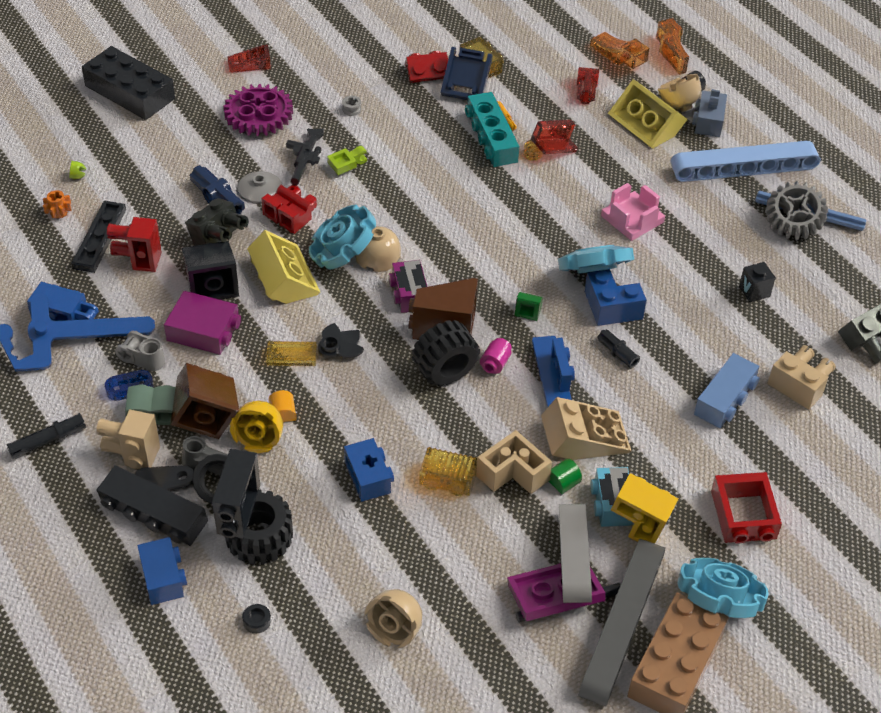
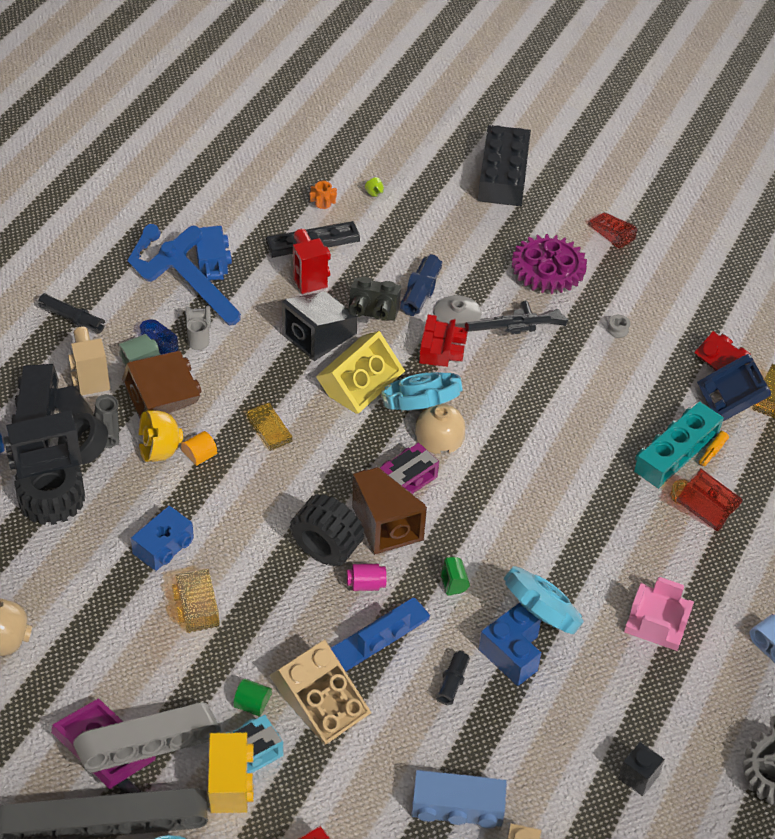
camera: 60 degrees right, 0 degrees up
(202, 322) = (256, 348): magenta brick -> none
(339, 343) = (304, 453): black plate -> none
(345, 161) = (538, 352): lime plate -> none
(514, 459) = (235, 642): tan brick -> none

